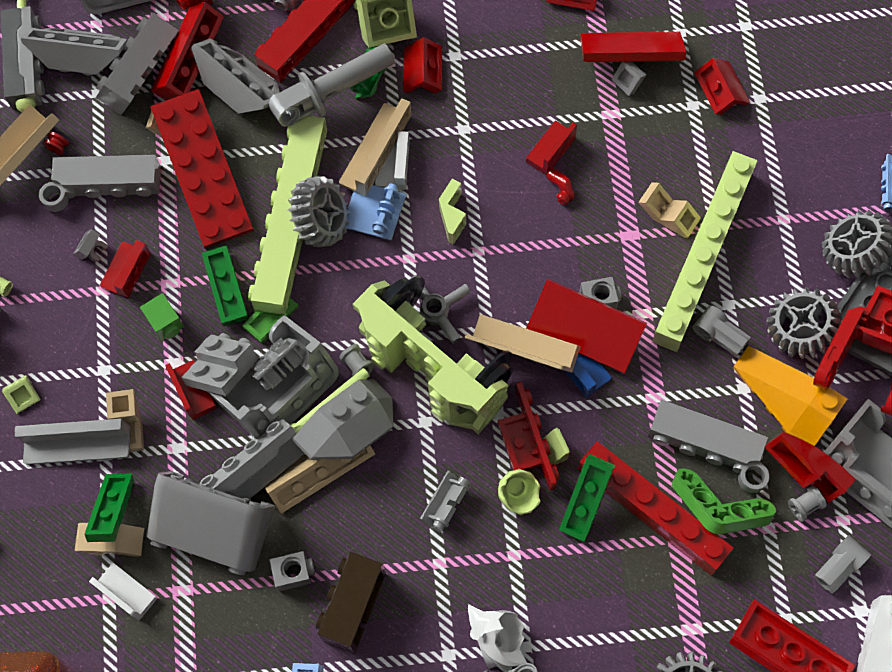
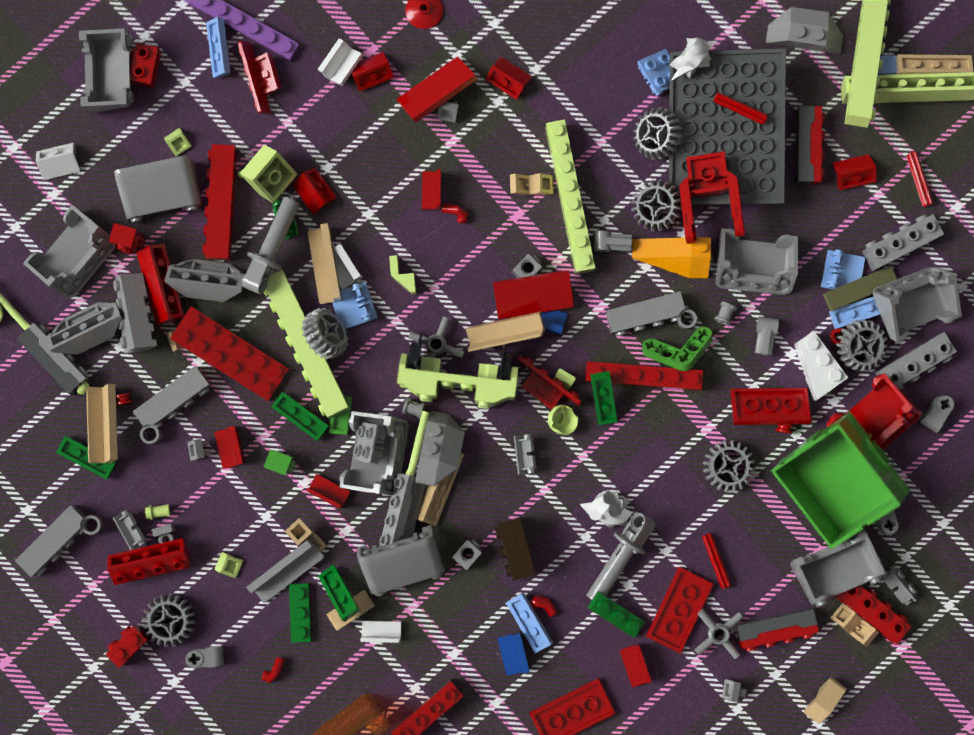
camera: 40 degrees left, 15 degrees up
(53, 503) = (300, 612): none -> green plate
(220, 364) = (337, 467): light grey plate -> none
(810, 465) = (715, 292): red slope -> none

